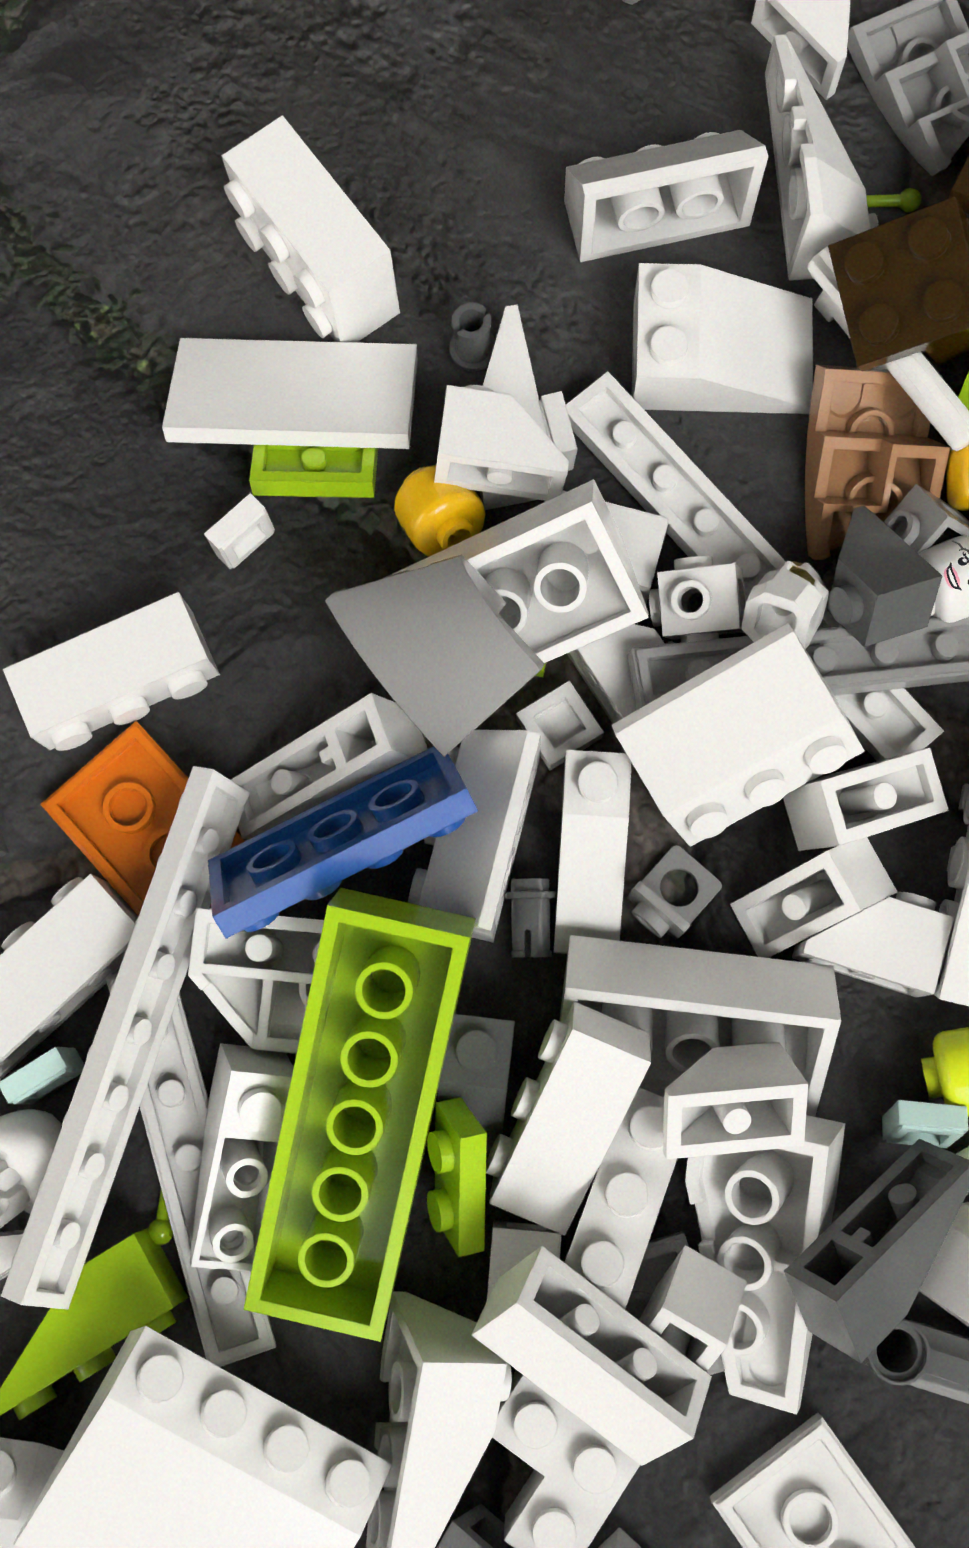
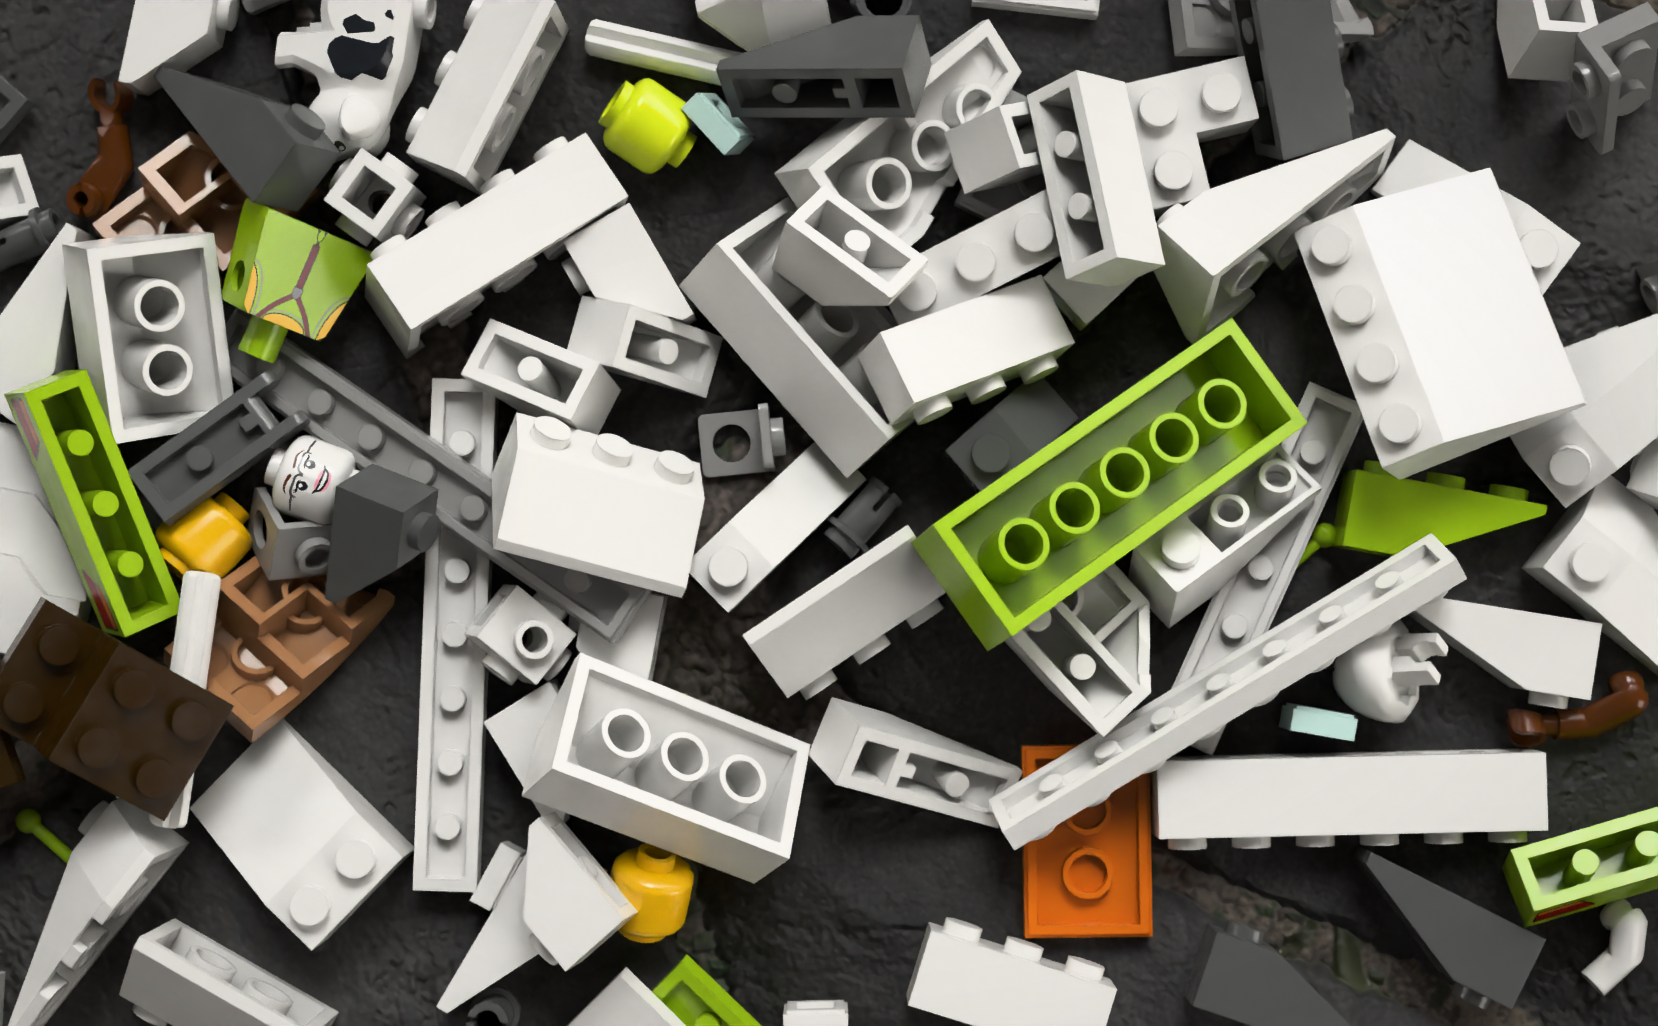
camera: 140 degrees left, 10 degrees up
(335, 840) = (957, 691): blue plate -> none
(437, 646) = (757, 771): light grey slope -> none
(459, 1165) = (1072, 386): lime plate -> none
(563, 724) = (709, 642): white plate -> none
(786, 596) = (465, 571): white rock -> none

